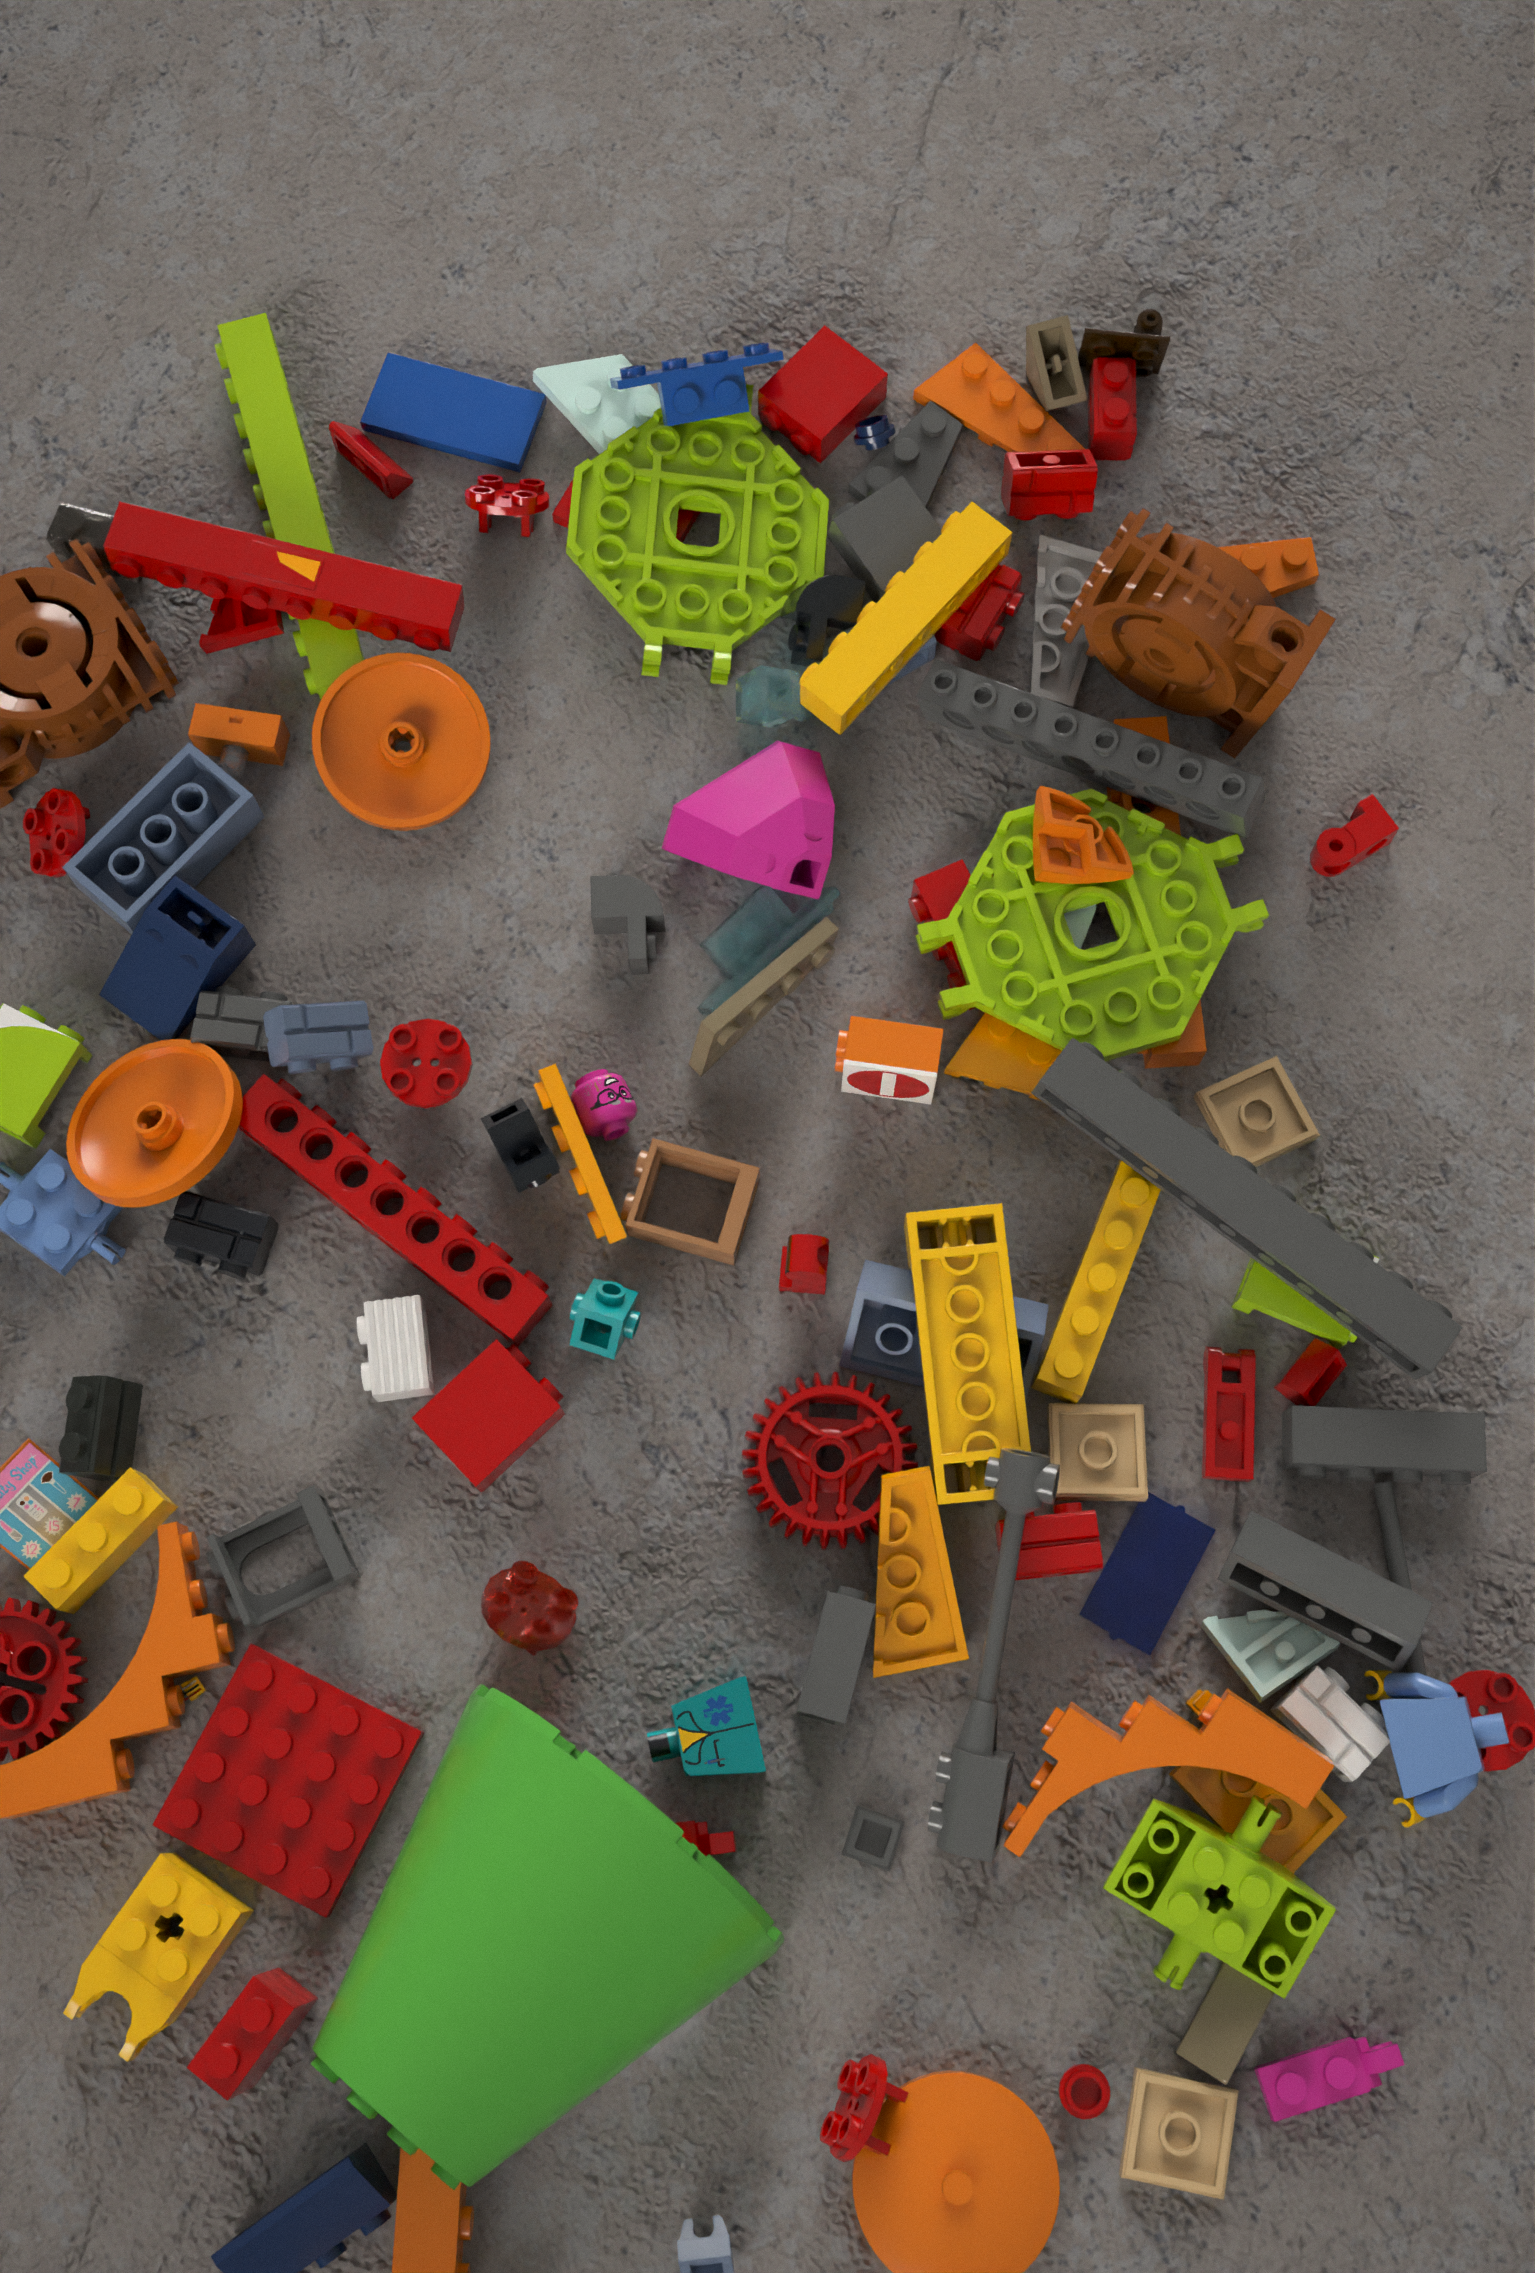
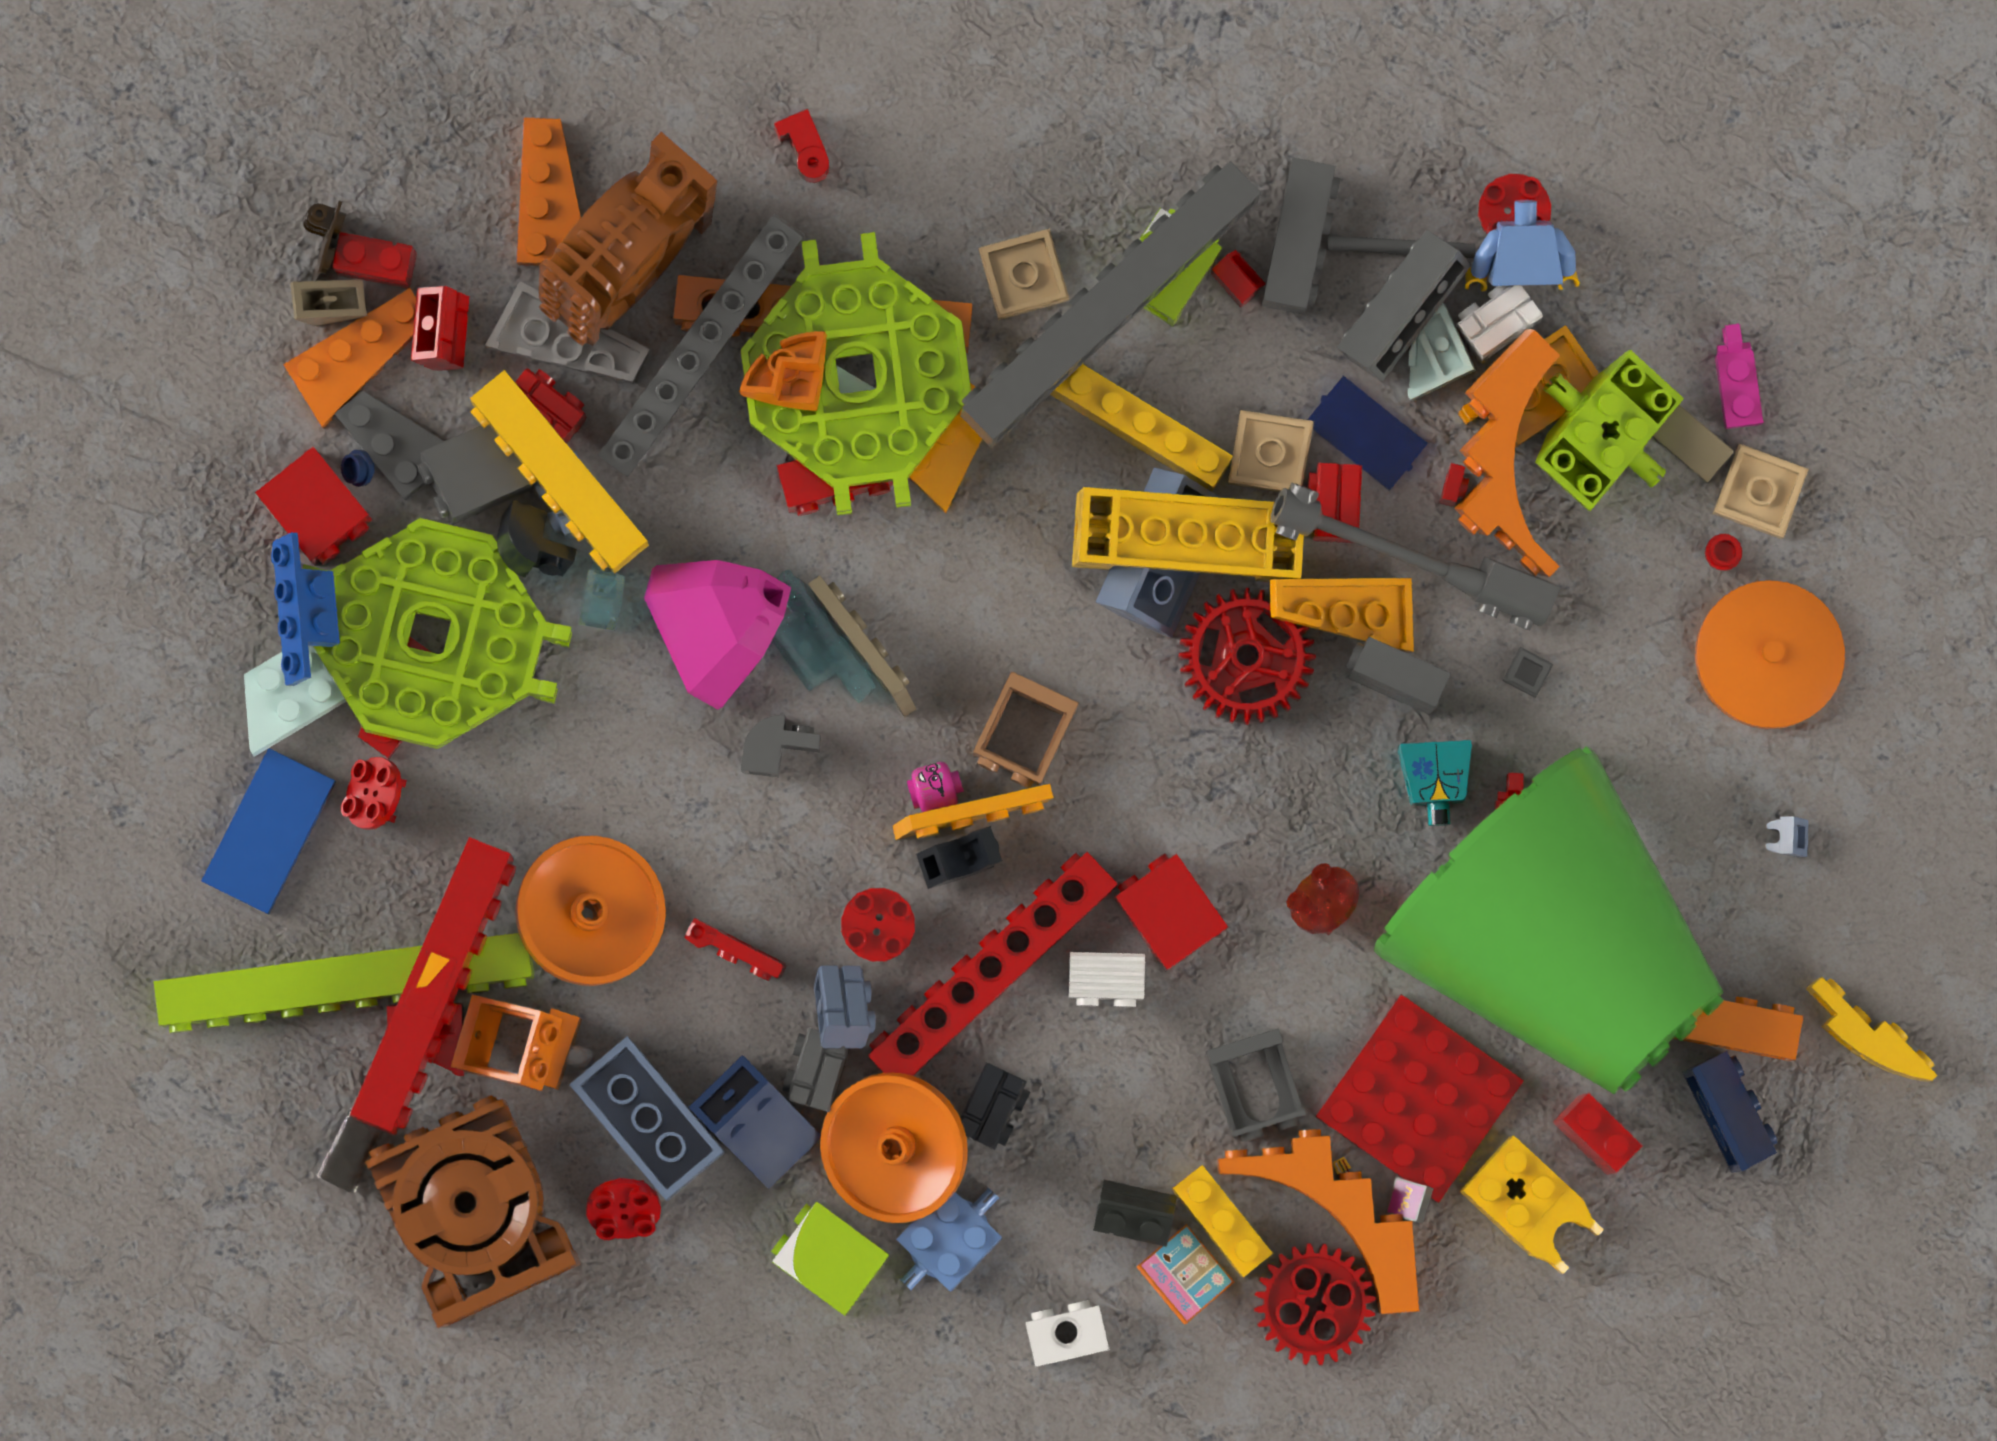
camera: 85 degrees left, 10 degrees up
(150, 1785) = (1409, 1200): none -> tile
(219, 650) = (484, 1018): none -> orange window
(369, 459) = (304, 908): red slope -> none
(379, 914) = (733, 949): none -> red hinge
(604, 1318) = (1110, 811): teal brick -> none
(804, 1264) = (1092, 650): red leg -> none
(858, 2108) = (1711, 711): red plate -> none
(889, 1059) = (938, 554): orange piece -> none
(1101, 1697) = (1454, 485): none -> red plate
(1228, 1415) = (1258, 347): red plate -> none

